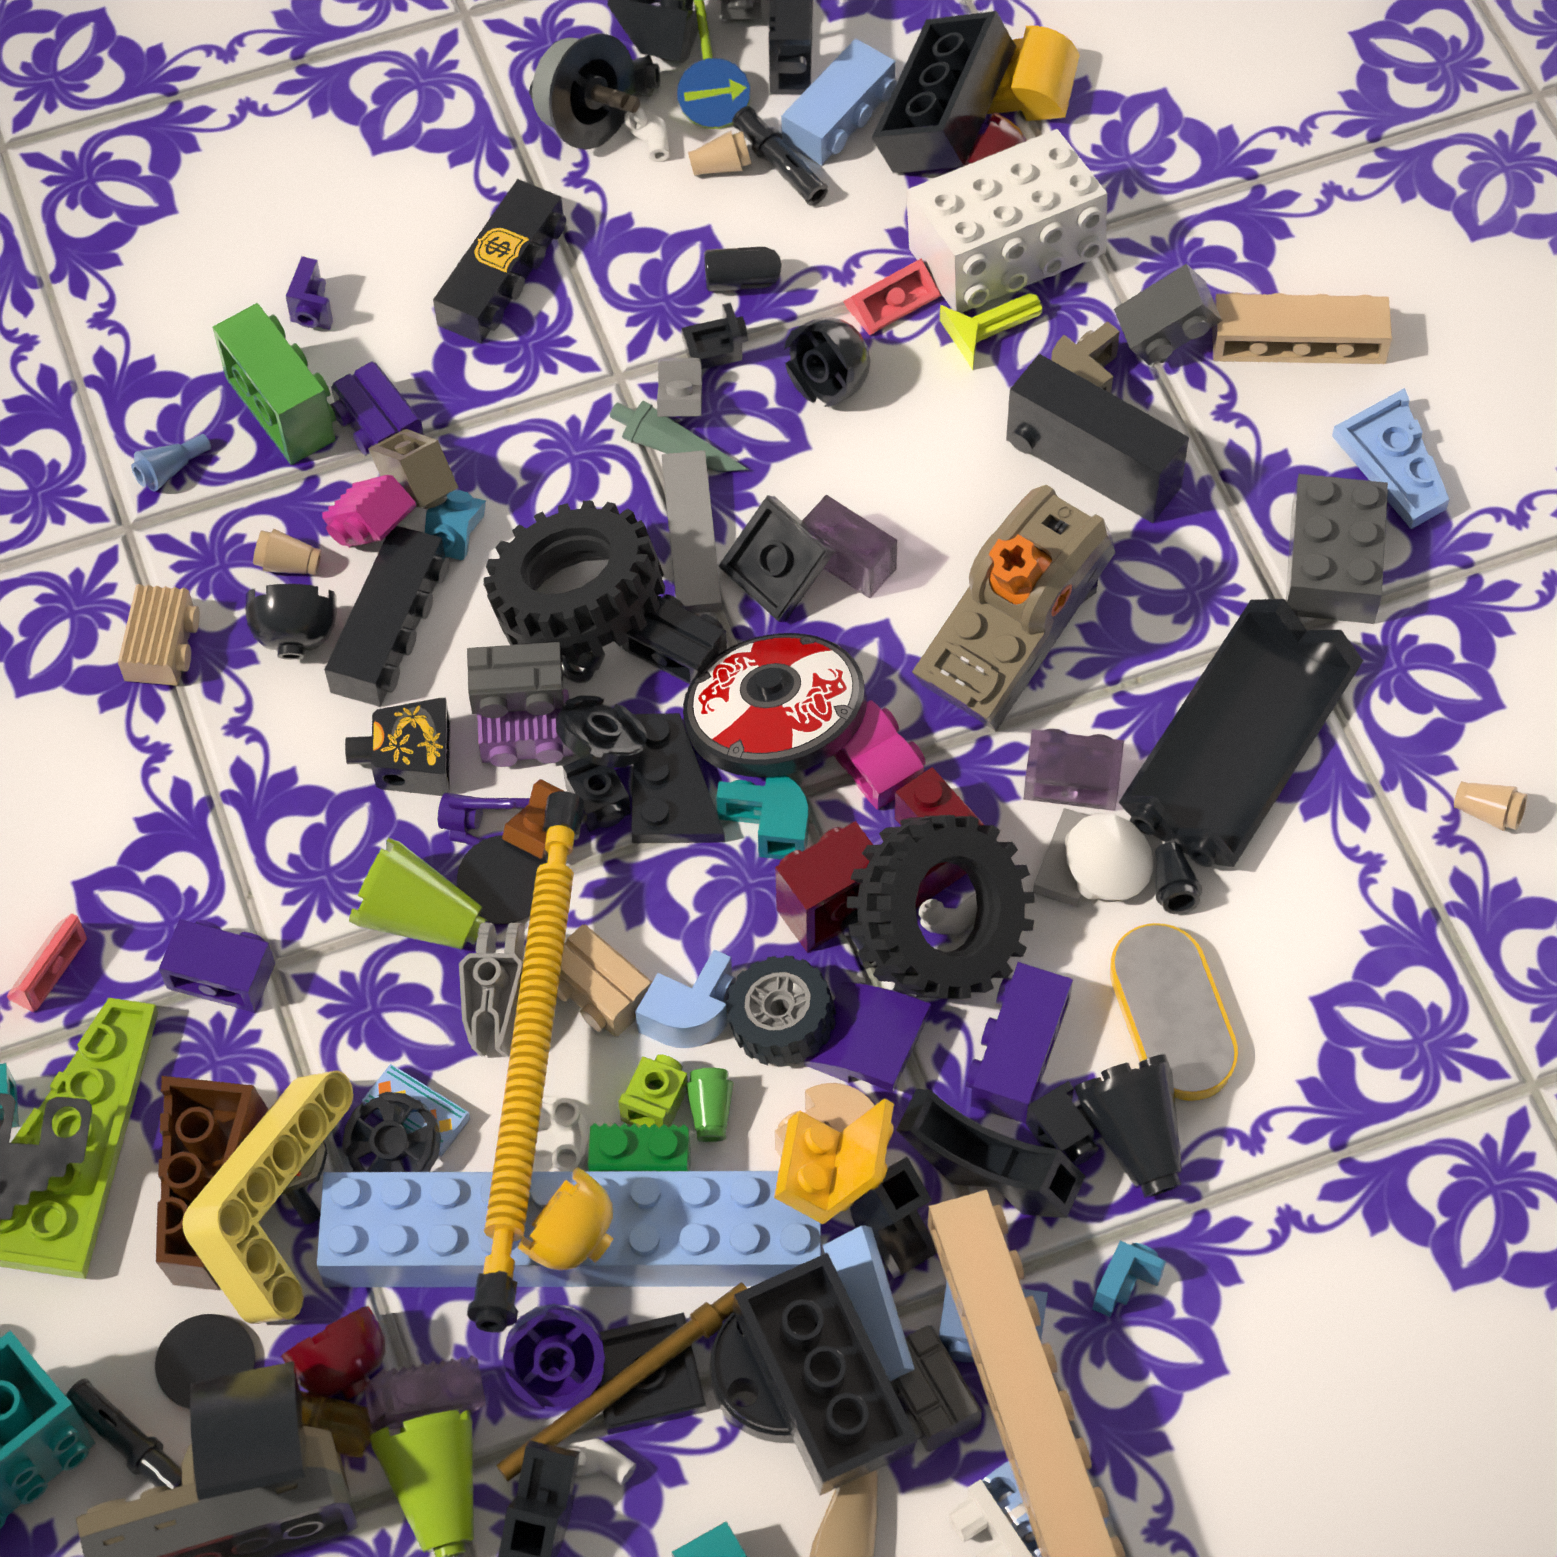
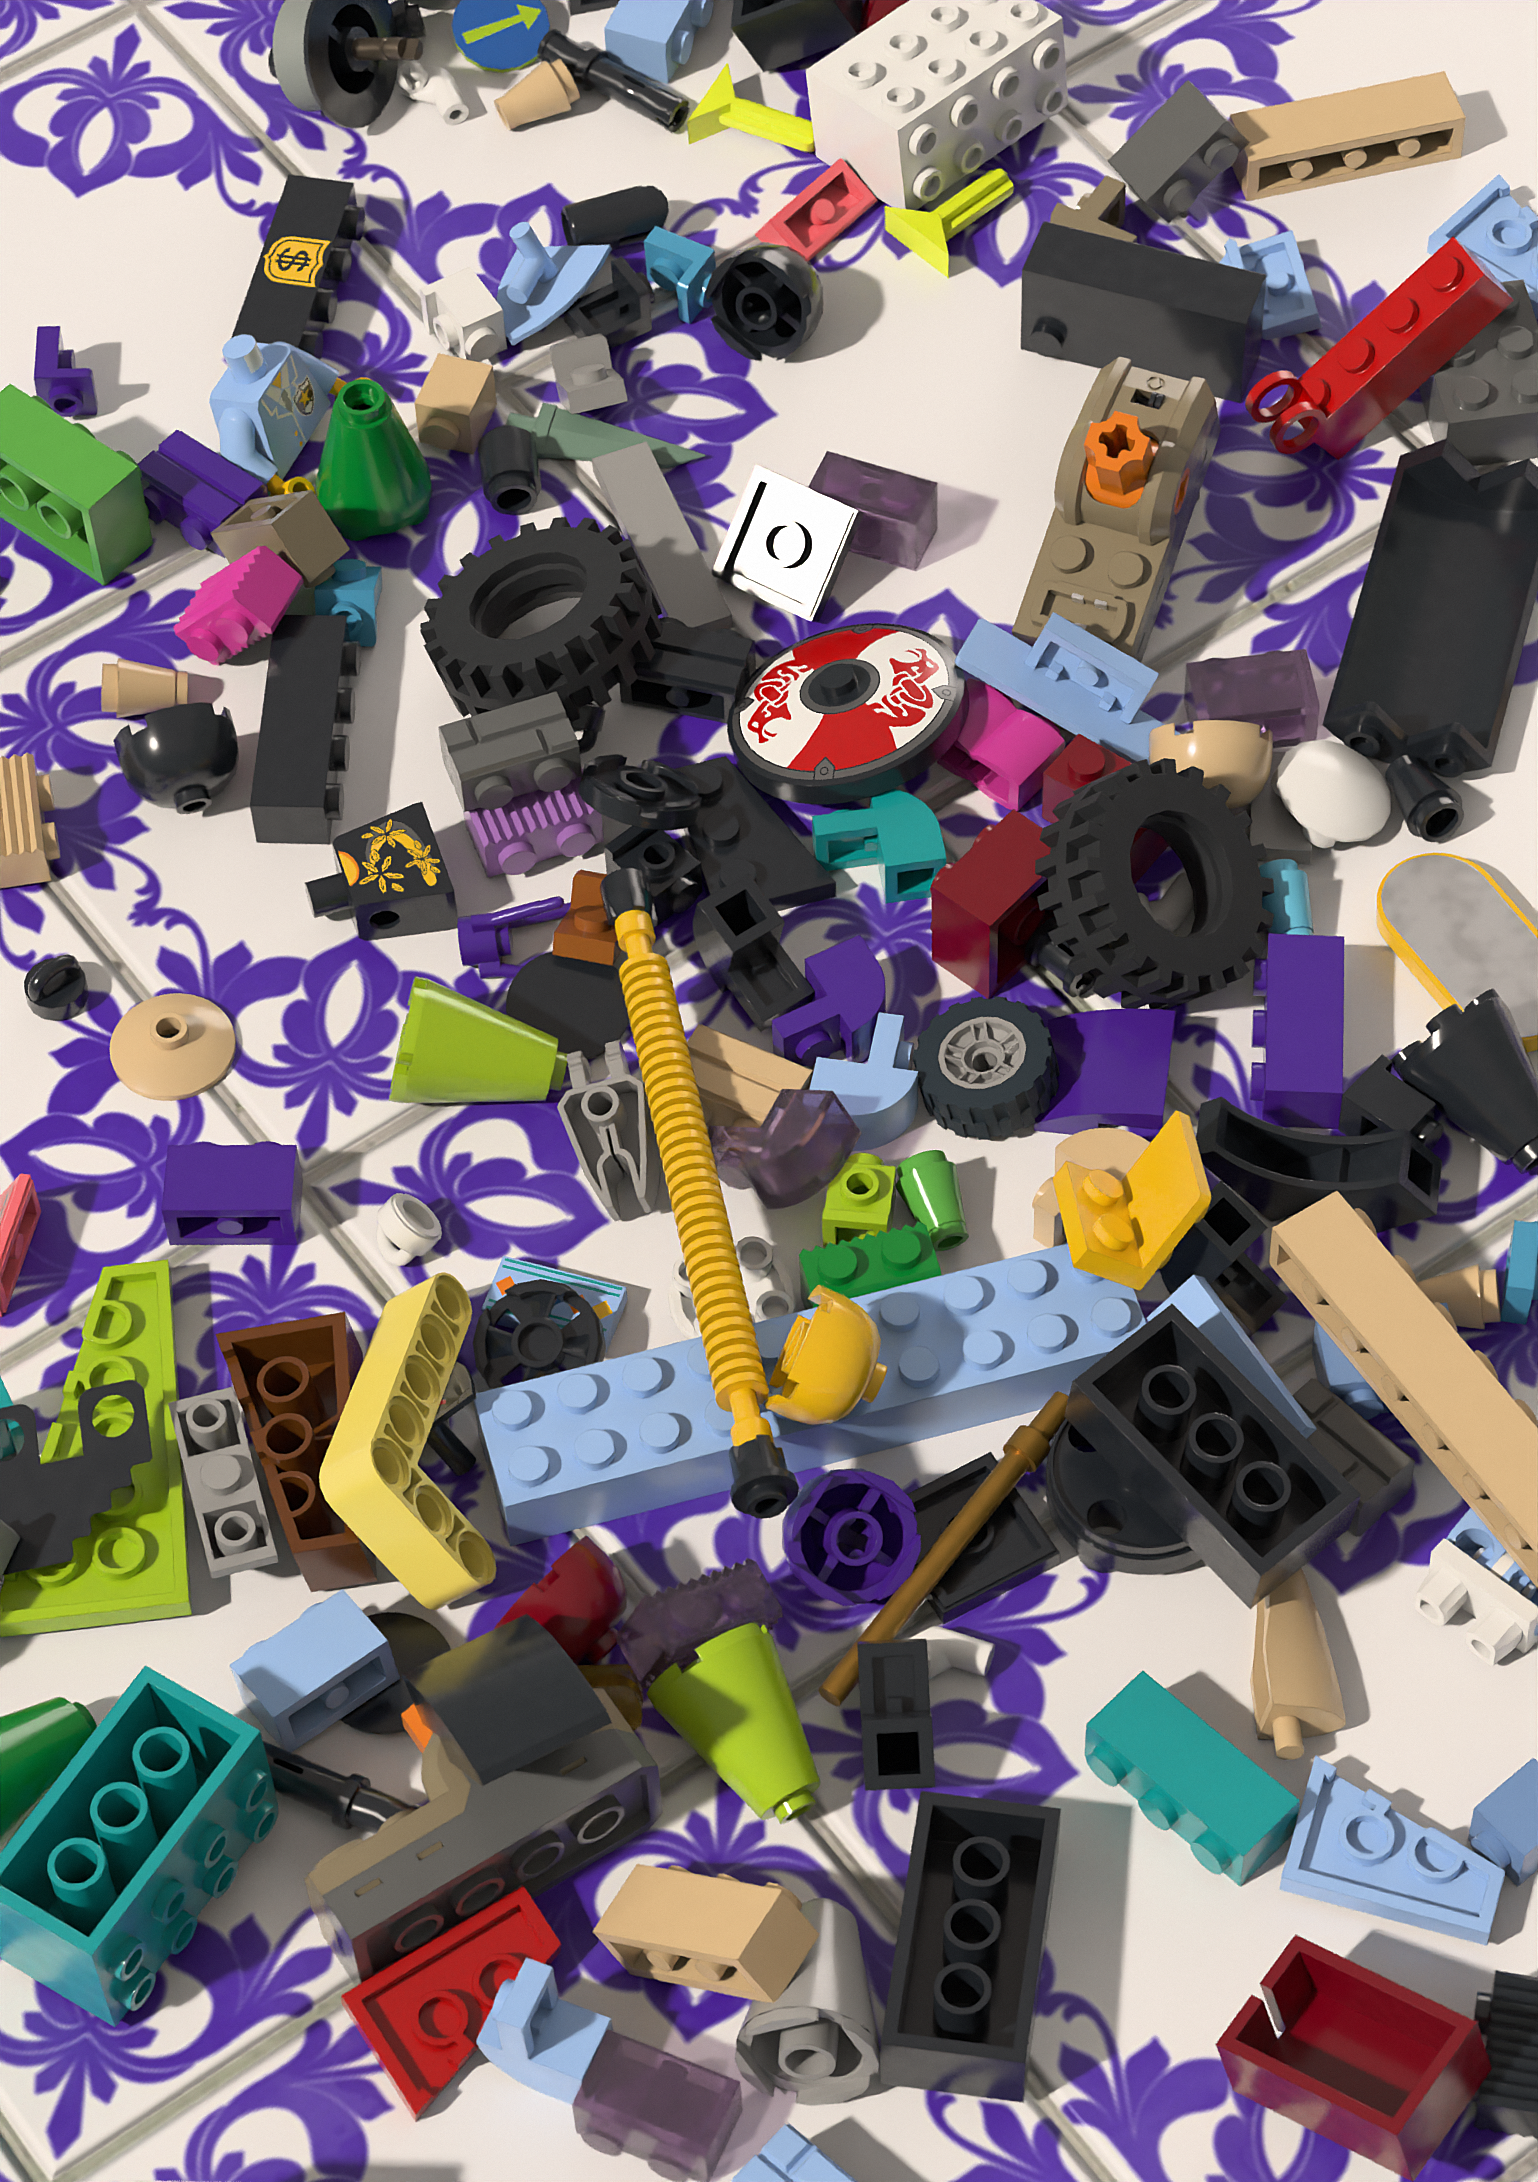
camera: 15 degrees left, 5 degrees down
(130, 1192) = (222, 1482): none -> light grey slope
(149, 1350) = (314, 1671): none -> light blue brick
(152, 771) = (56, 988): none -> black tile
(221, 852) = (175, 1065): none -> tan dish
(330, 1023) = (408, 1225): none -> white tile
(444, 360) = (270, 408): none -> light blue torso
(500, 425) = (370, 466): none -> green cone
(579, 386) = (455, 403): none -> tan brick
(601, 447) = (509, 469): none -> black brick
(608, 319) = (464, 316): none -> white brick
(615, 1042) = (792, 1152): none -> clear purple brick
(640, 878) = (741, 949): none -> black brick
(674, 305) = (544, 281): none -> light blue shield
(702, 929) = (843, 1008): none -> dark purple brick
(776, 318) = (680, 267): none -> dark azure bracket
(852, 197) = (723, 110): none -> neon yellow piece
(945, 730) = (1069, 681): none -> light blue bracket
(1023, 816) = (1226, 752): none -> tan cylinder
(1047, 937) = (1290, 898): none -> medium azure cone
(1067, 1285) = (1469, 1293): none -> tan cone
(1211, 434) = (1288, 296): none -> light blue slope
(1258, 521) = (1384, 354): none -> red hinge

